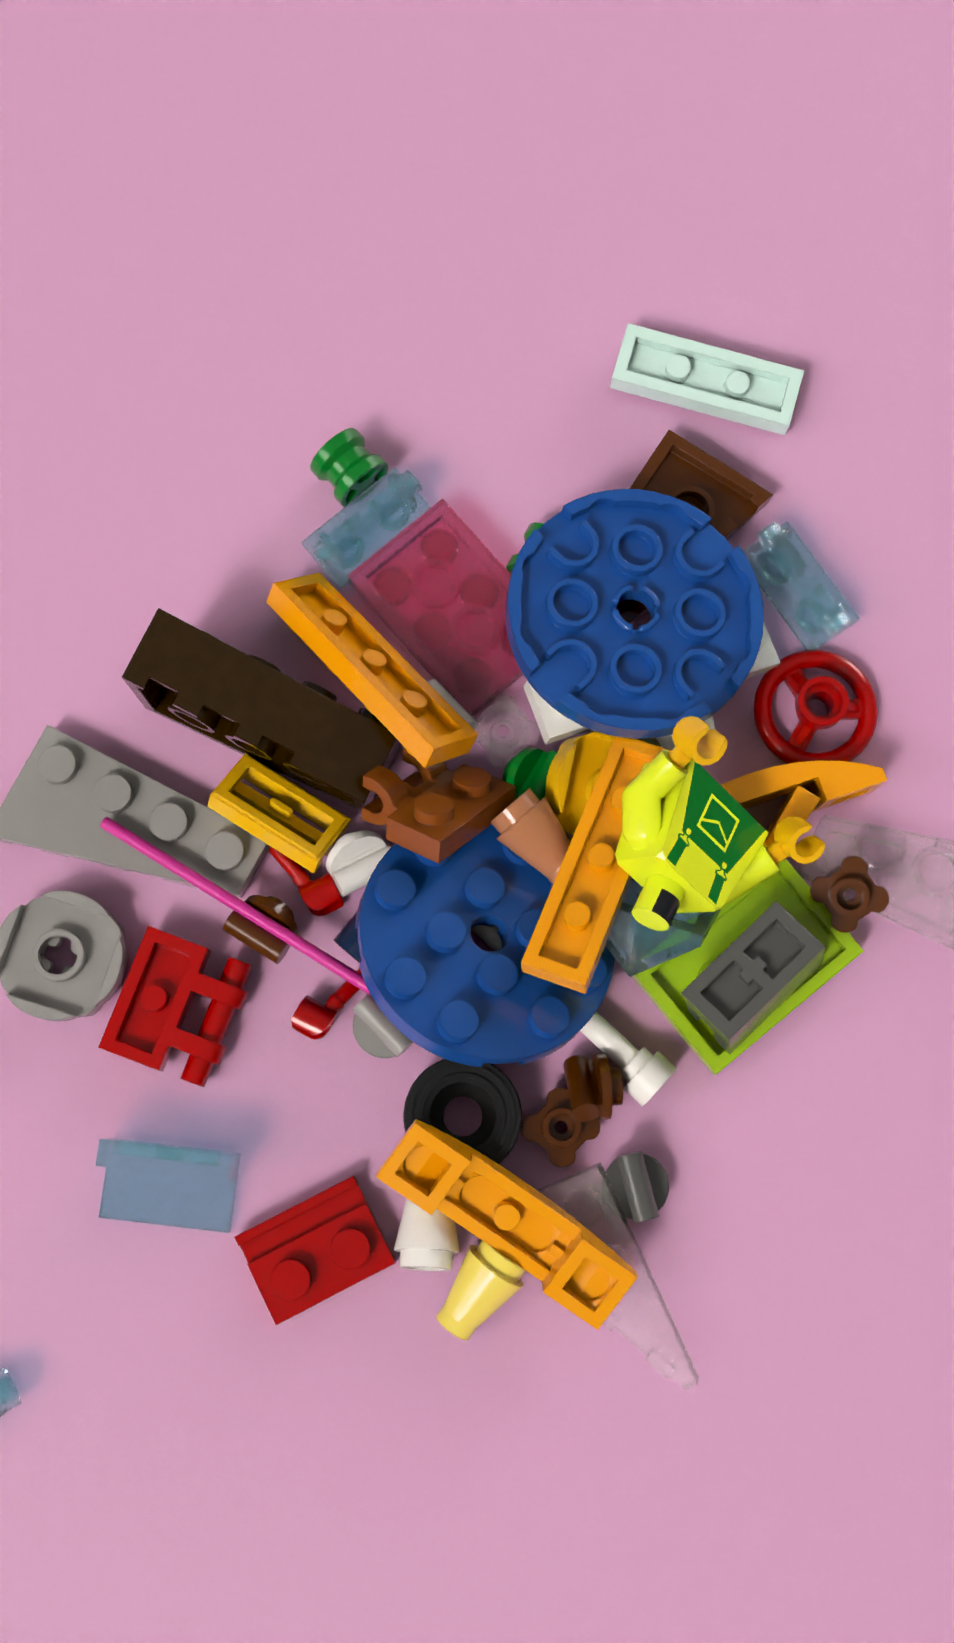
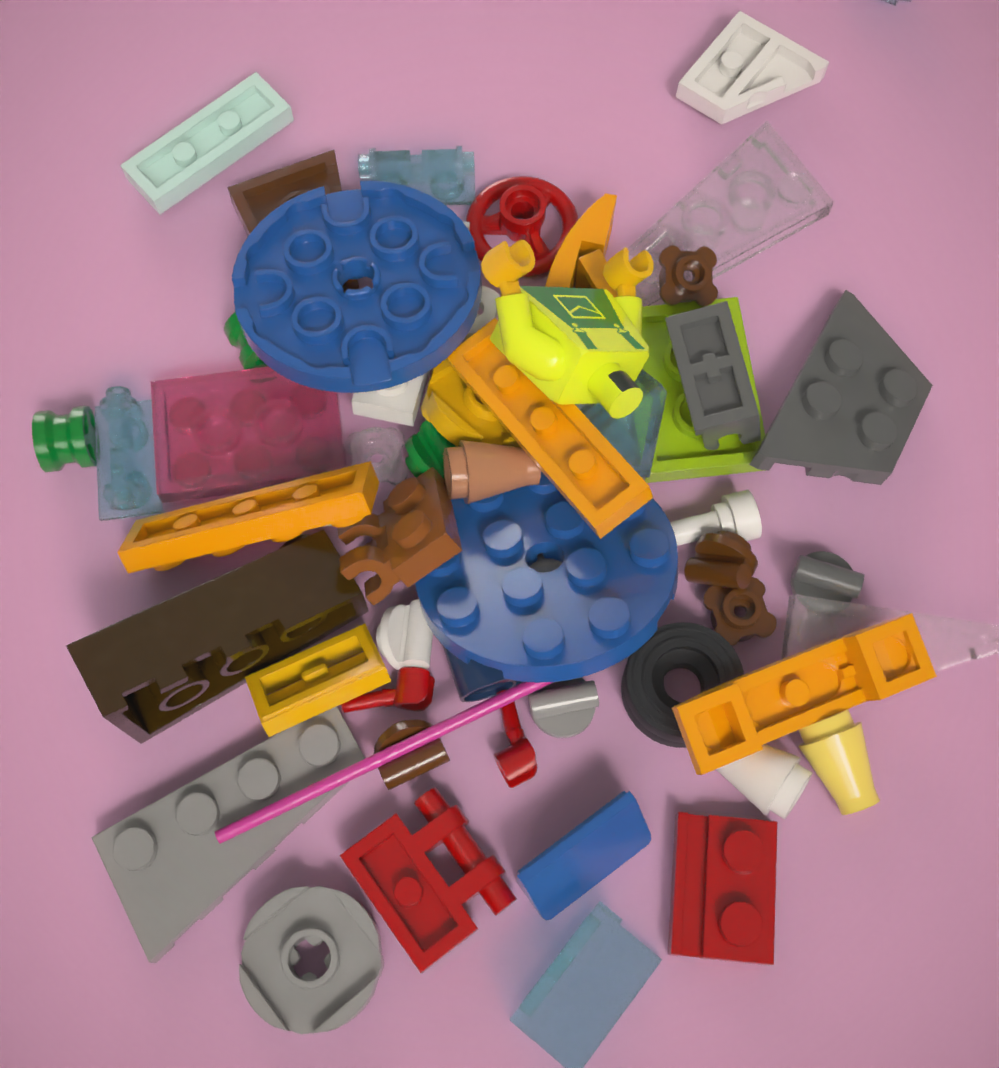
camera: 55 degrees left, 10 degrees down
(269, 1120) = (584, 856): none -> blue slope
(825, 1111) = (848, 402): none -> dark grey wing

